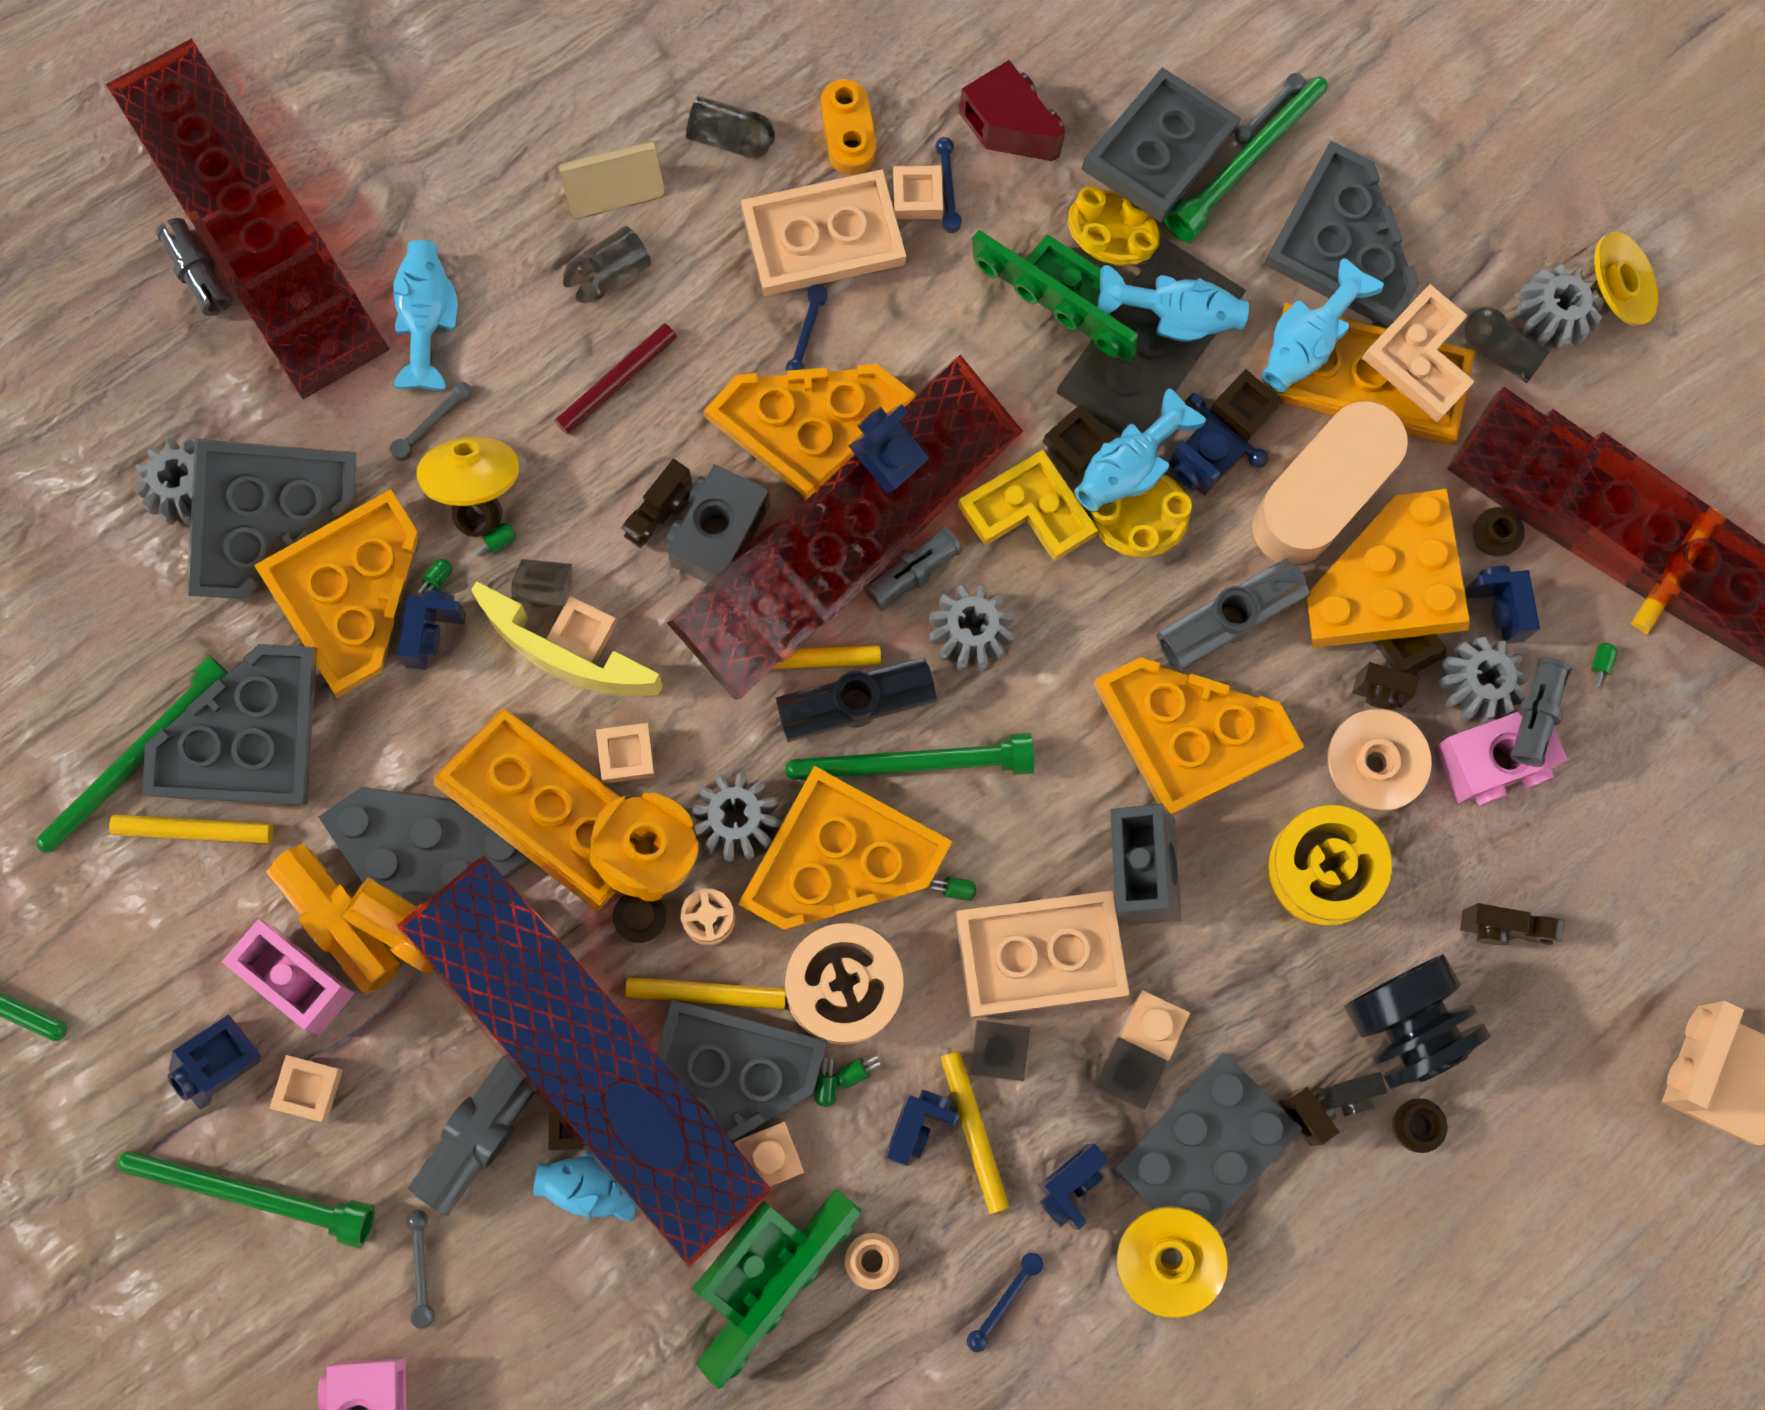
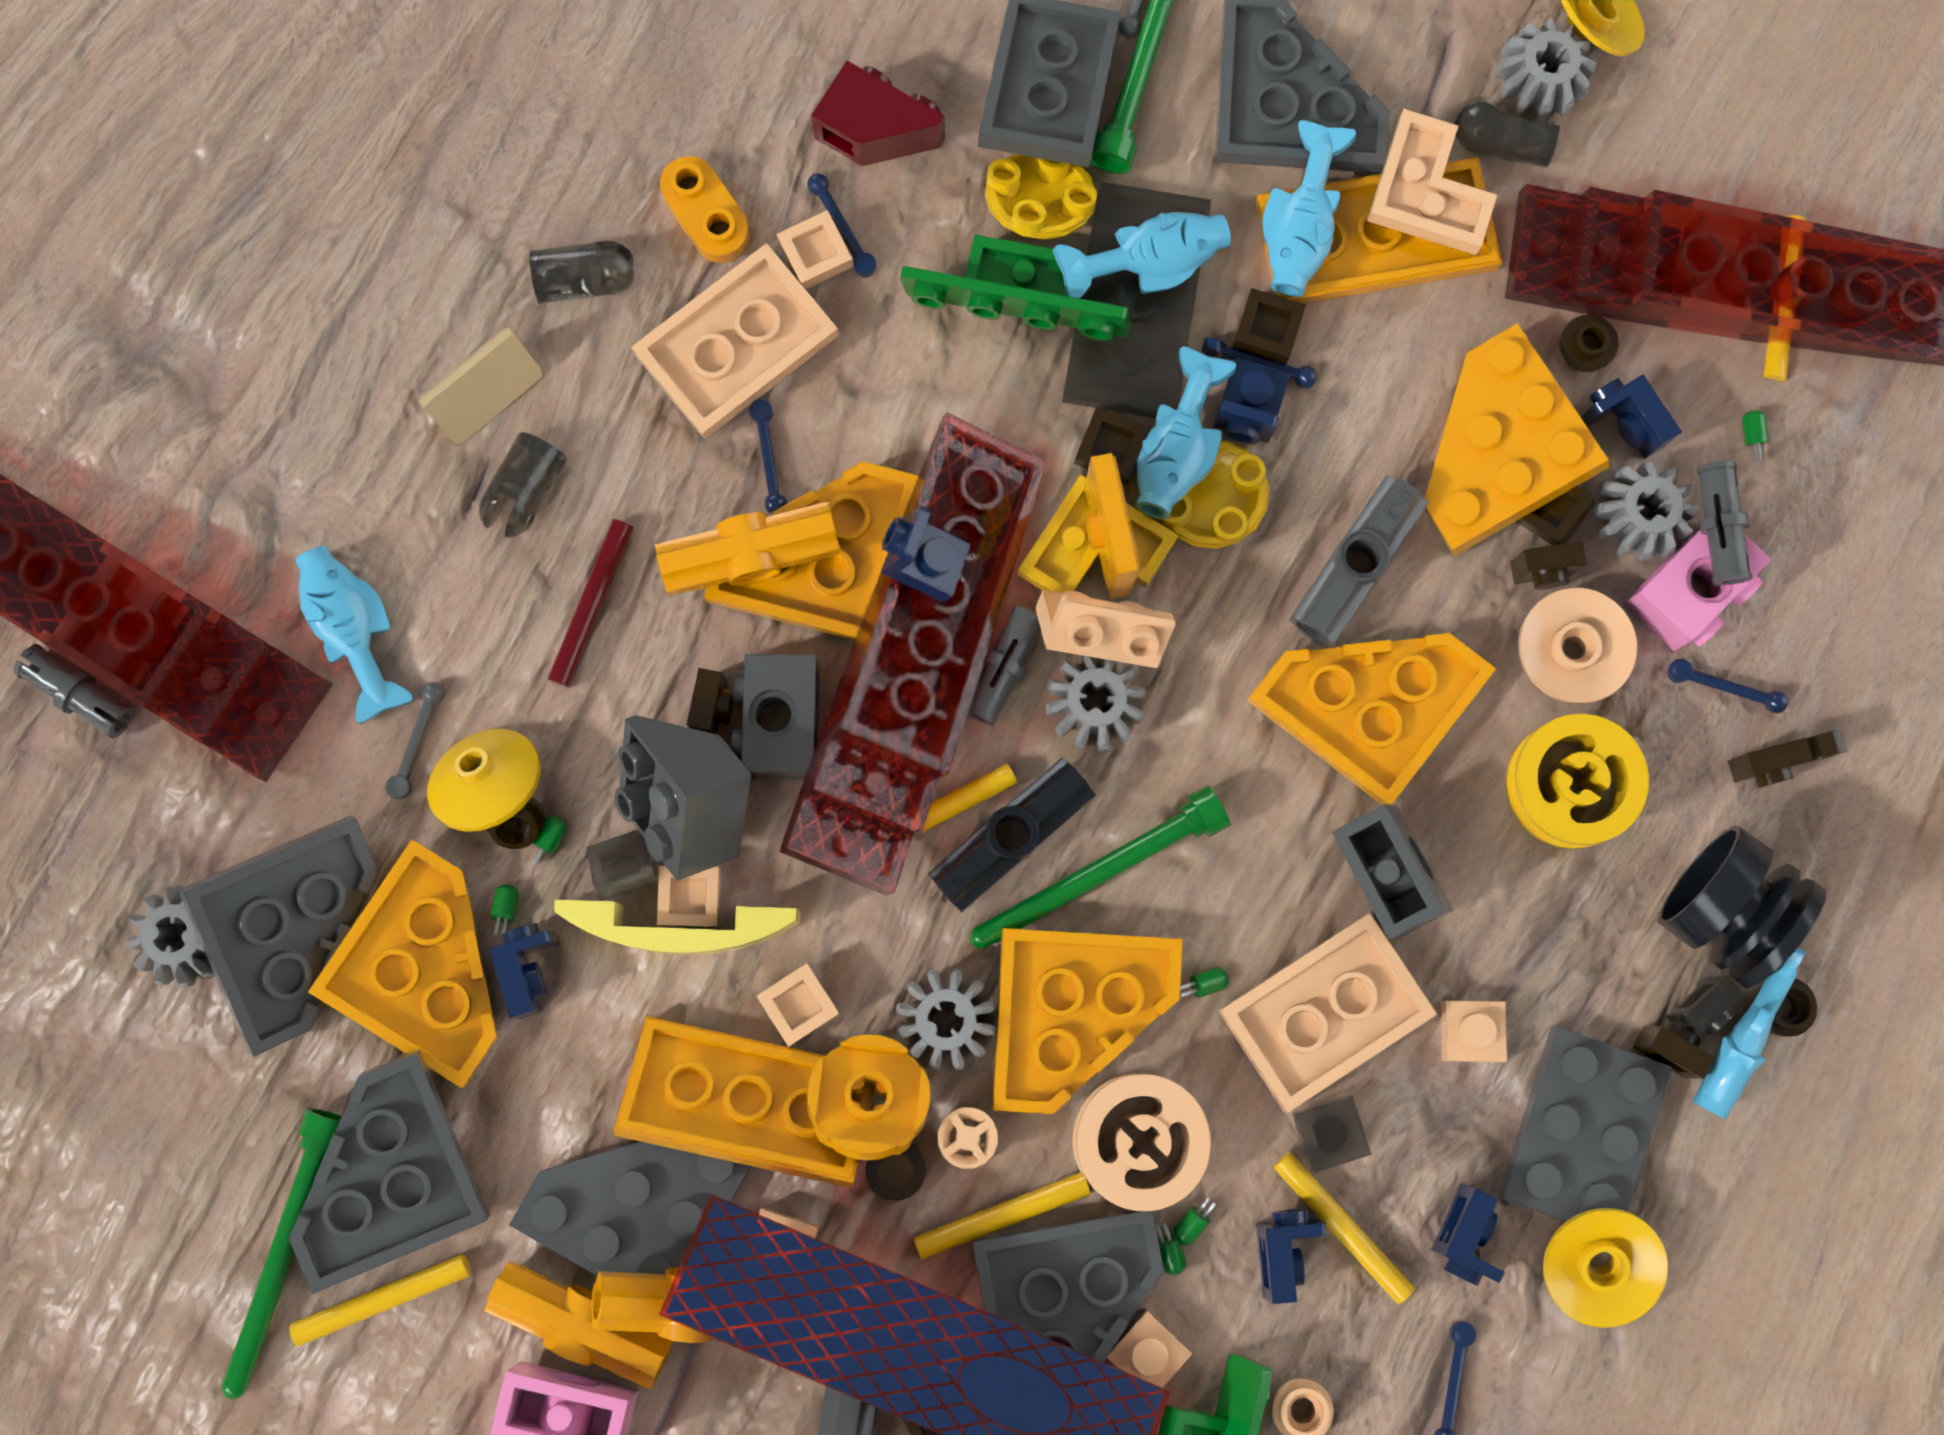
camera: 20 degrees left, 5 degrees up
(613, 546) = (682, 794): none -> dark grey slope
(754, 386) = (747, 549): none -> light orange piece
(1004, 570) = (1103, 628): none -> light nougat bracket
(1043, 489) = (1110, 526): none -> light orange plate
(1130, 1073) = (1473, 1093): clear smoke plate -> none
(1329, 482) = (1395, 372): light nougat plant -> none
(1366, 1138) = (1743, 1046): none -> medium azure animal
(1457, 821) = (1682, 670): none -> dark blue hinge

